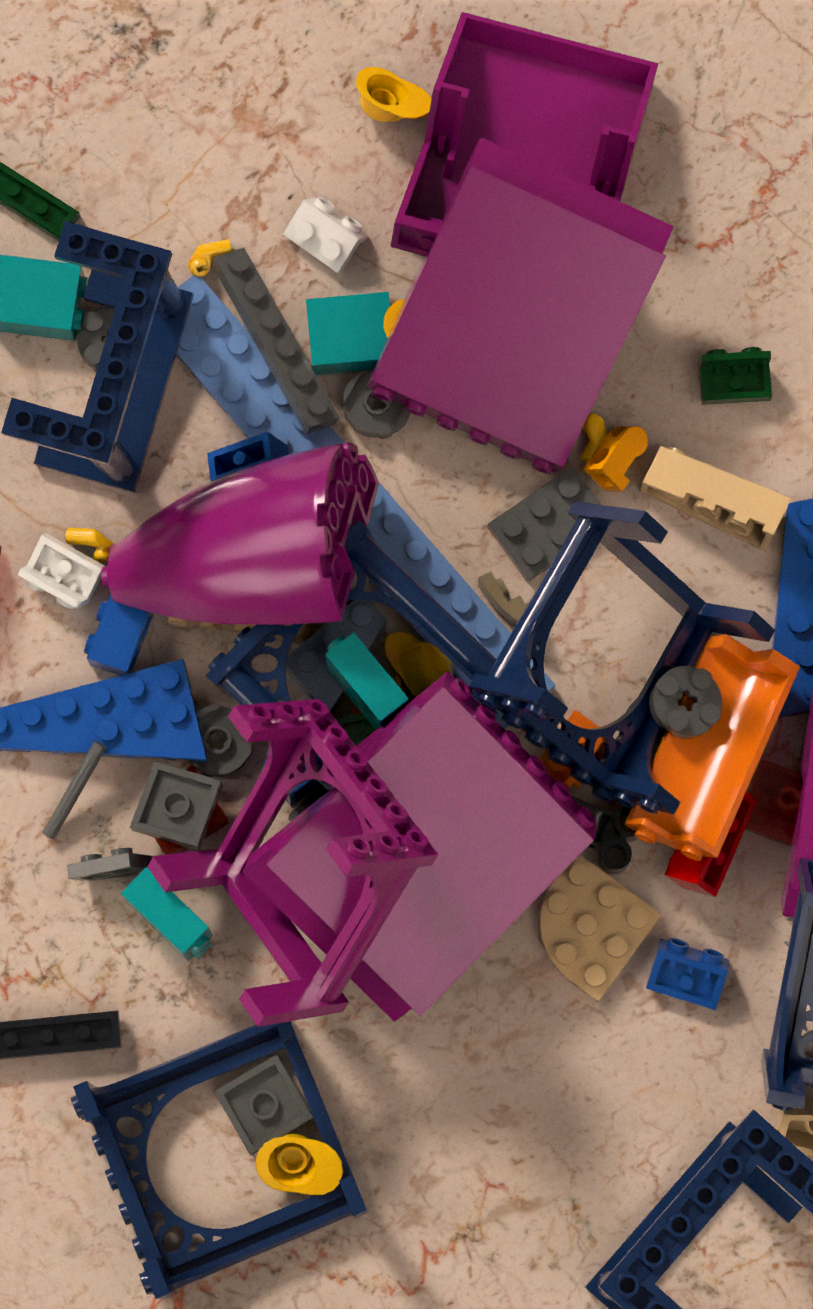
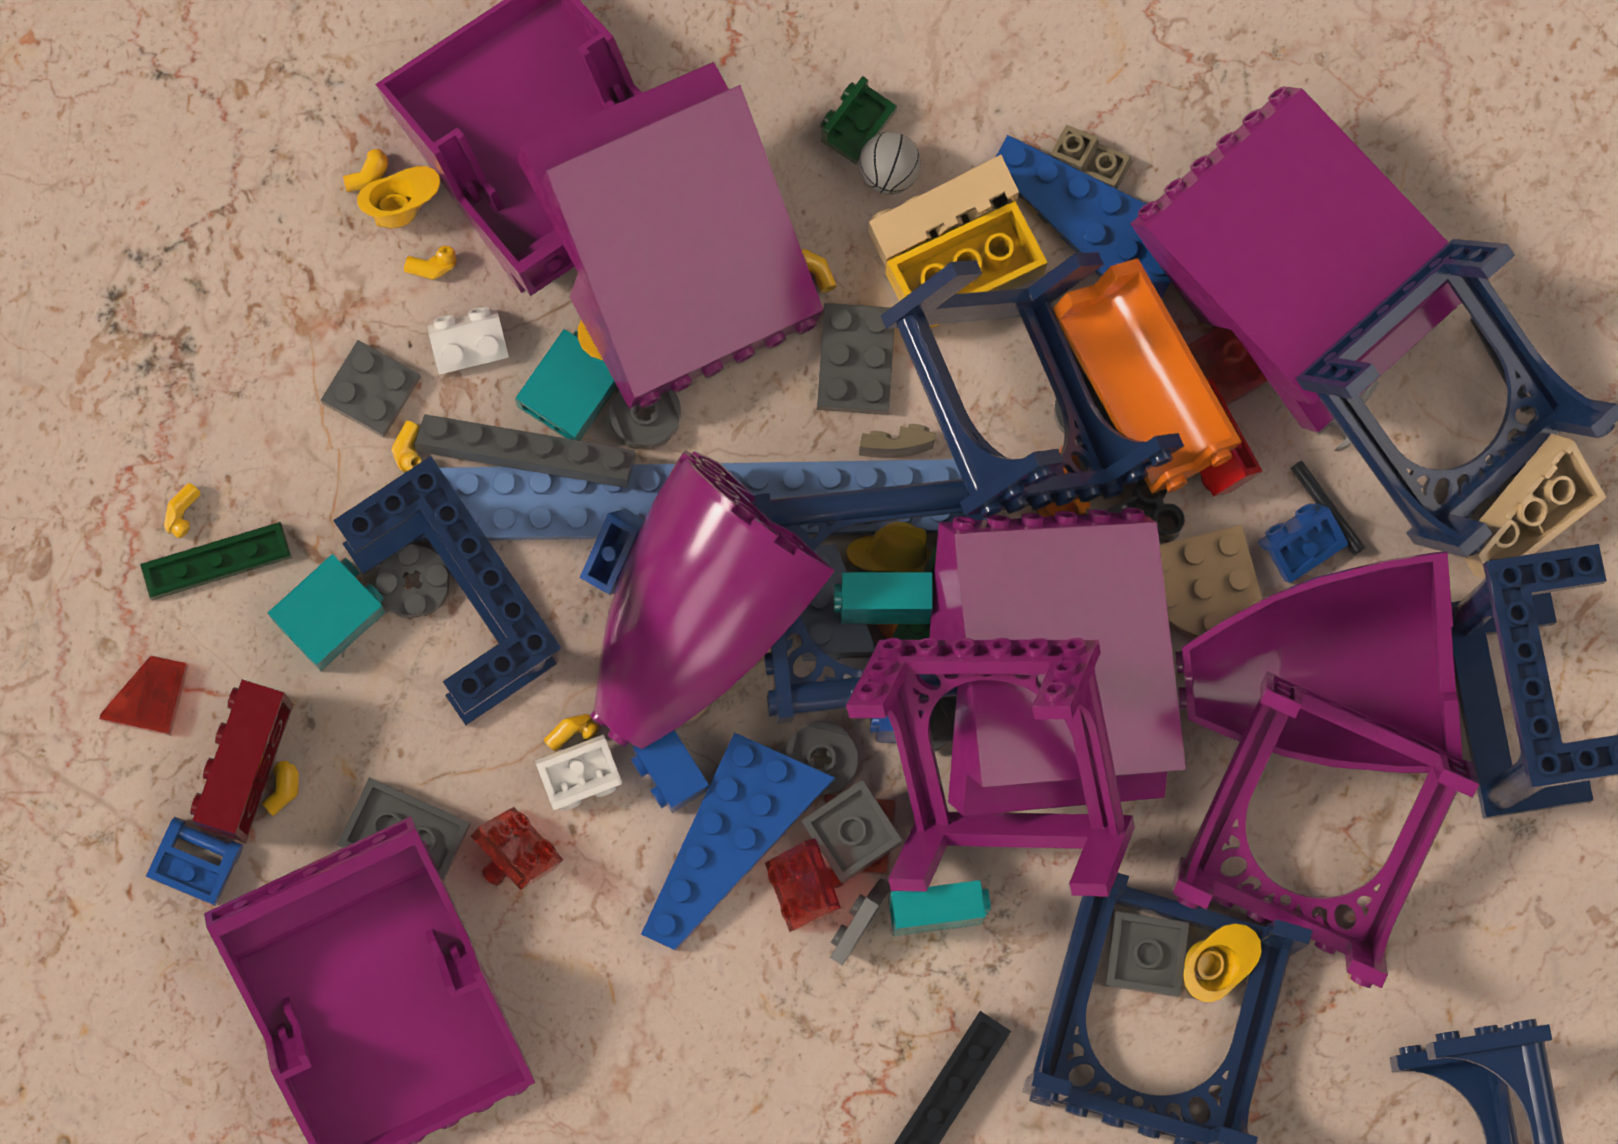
camera: 55 degrees left, 0 degrees up
(27, 133) = (176, 509): none -> yellow arm
(74, 789) = (770, 904): dark grey bar -> none
(107, 801) = (803, 884): none -> clear red plate
(232, 195) = (370, 388): none -> dark grey plate
(360, 166) = (435, 266): none -> yellow arm
(362, 1093) = (1200, 876): none -> magenta arch
(399, 64) = (372, 170): none -> yellow arm
(598, 1077) = (1355, 636): none -> magenta panel
(615, 456) = (846, 263): light orange leg -> none
(675, 718) = (1094, 348): dark grey plate -> none
(700, 548) = (996, 240): none -> yellow brick
(721, 426) = (889, 163): none -> light grey piece
(735, 964) = (1320, 497): none -> black bar

